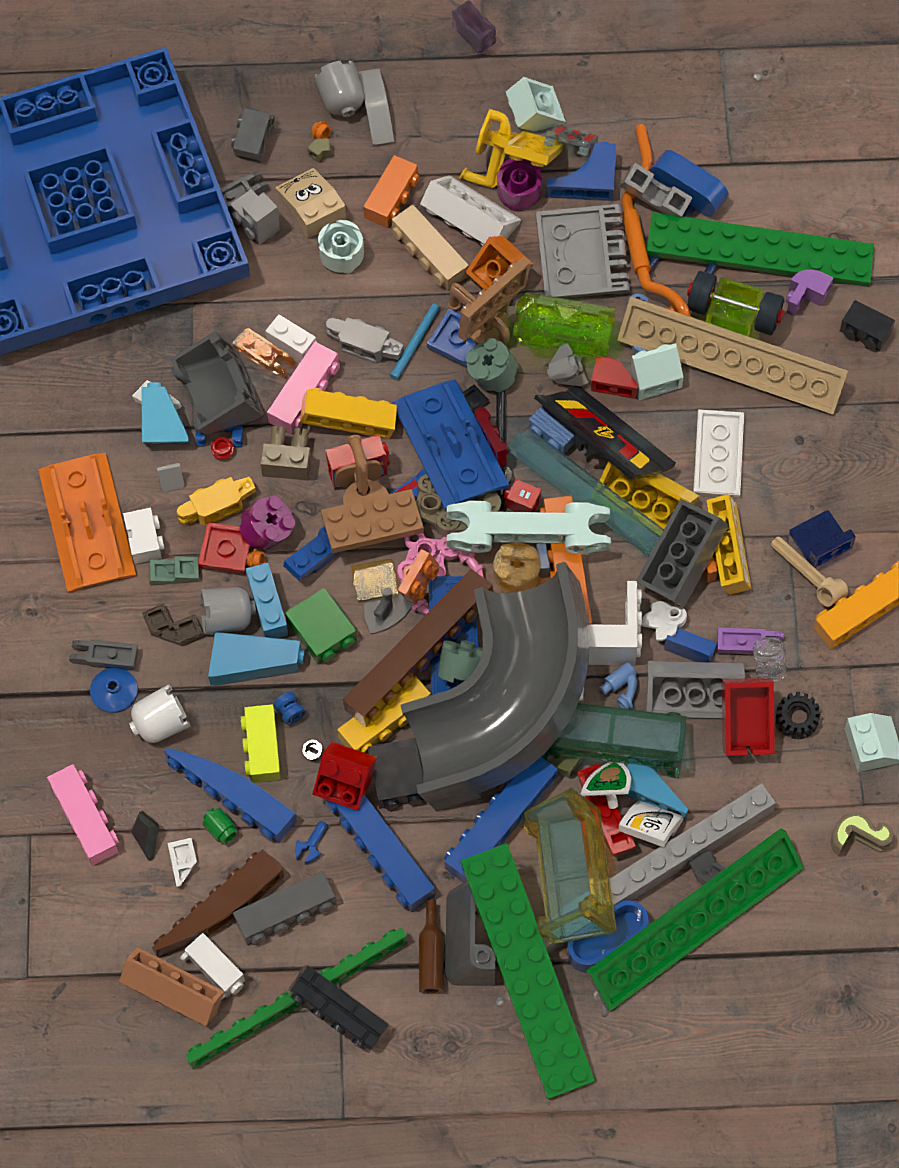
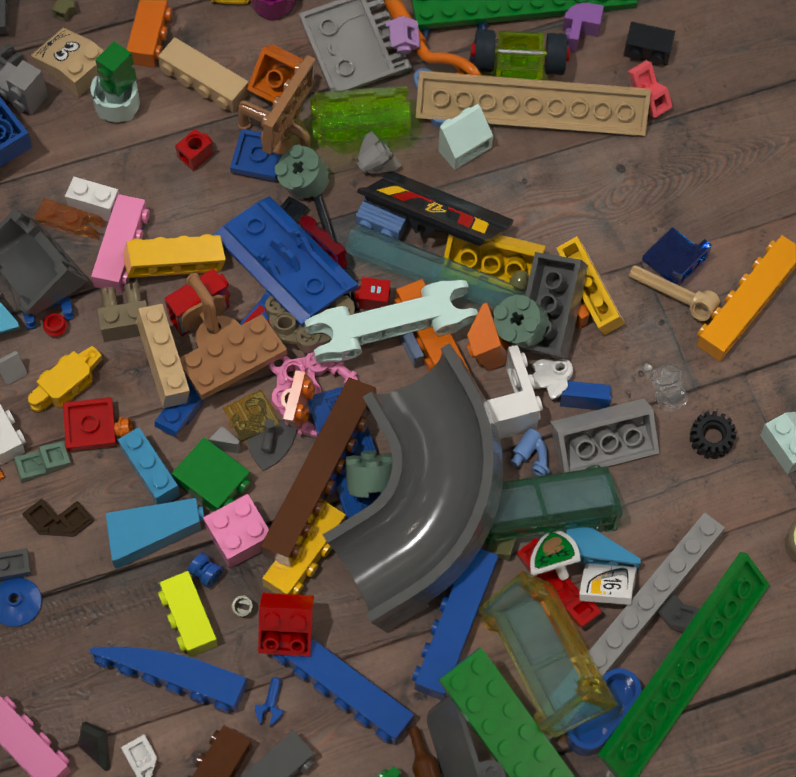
camera: 20 degrees left, 0 degrees up
(158, 716) = (71, 617): white cylinder -> none
(219, 826) = (170, 713): green brick -> none
(226, 609) = (109, 487): light grey cylinder -> none
(266, 523) = (124, 387): magenta brick -> none
(308, 503) = (162, 356): none -> tan brick
(328, 680) = (237, 530): none -> bright pink brick
(343, 597) = (225, 441): none -> light grey slope
(345, 223) = (115, 69): none -> green brick
(363, 340) = (165, 180): light grey hinge -> none
(397, 773) = (337, 606): black brick -> none
(399, 325) = (192, 157): none -> red brick
(414, 342) = (216, 170): dark azure bar -> none
(468, 210) = (229, 30): white slope -> none
(513, 557) = (386, 354): clear yellow brick -> none
(612, 378) = (424, 155): red slope -> none
(614, 567) = (485, 342): none -> orange slope
(629, 257) = (404, 34): none -> lavender brick
(646, 559) = (533, 326): none -> sand green brick
(661, 520) = (520, 279): none -> olive hinge
(718, 453) = (548, 201): white tile -> none
(742, 639) = (634, 375): medium lavender hinge -> none
(748, 716) = (669, 449): red piece -> none
(856, 382) = (644, 77): none -> coral brick

